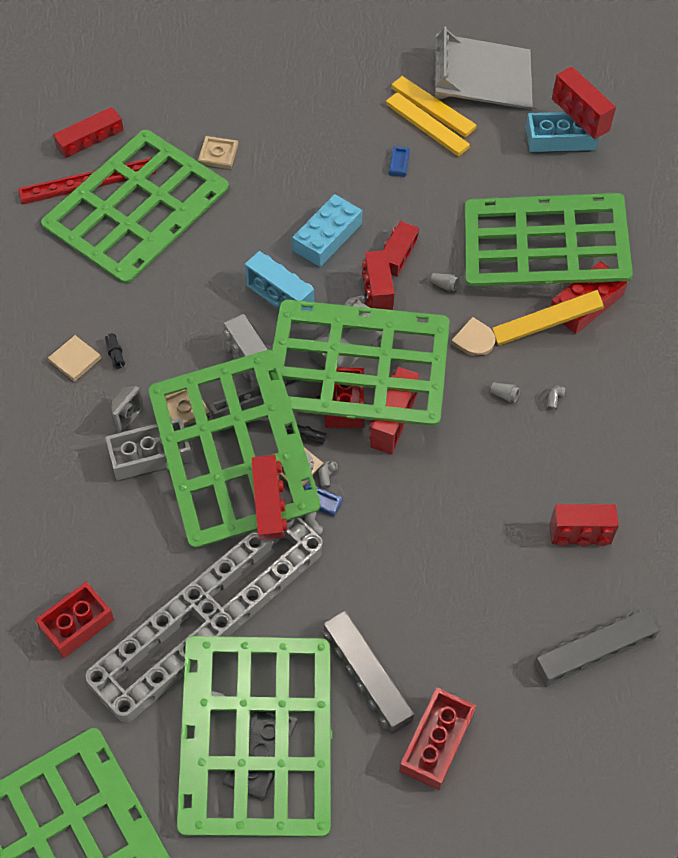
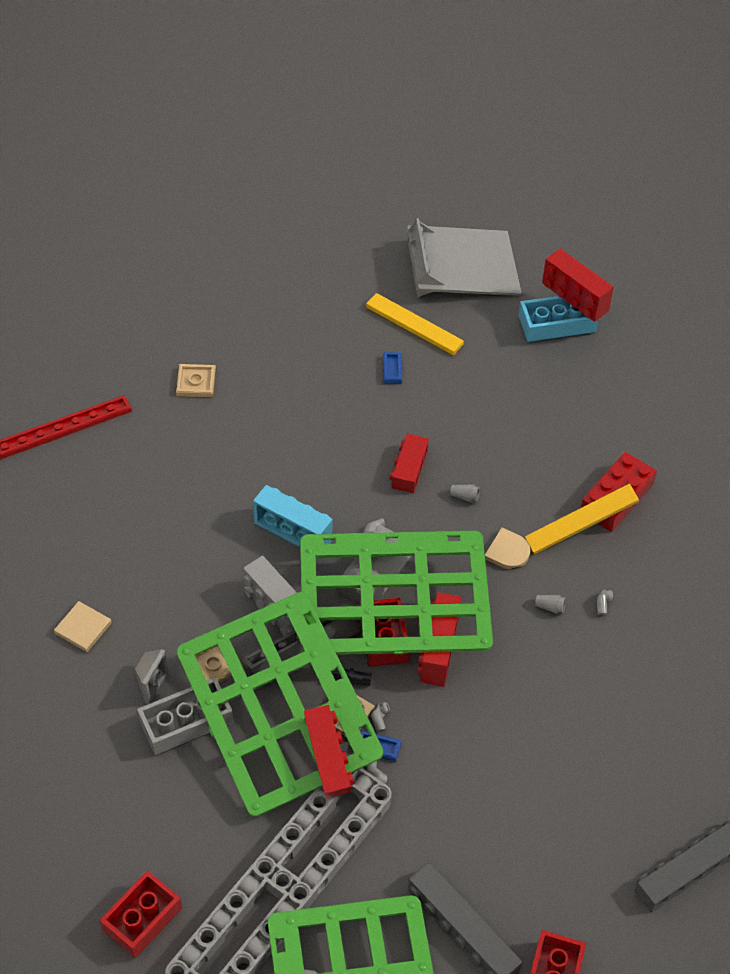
camera: 10 degrees left, 5 degrees down
(88, 132) = (50, 374): red brick -> none
(114, 351) = (125, 613): black pin -> none
(152, 242) = (143, 488): bright green door -> none
(327, 230) = (330, 452): medium azure brick -> none
(377, 280) = (396, 501): red brick -> none
(434, 106) = (417, 304): yellow tile -> none
(558, 204) = (568, 395): bright green door -> none
(583, 524) = (659, 734): red brick -> none

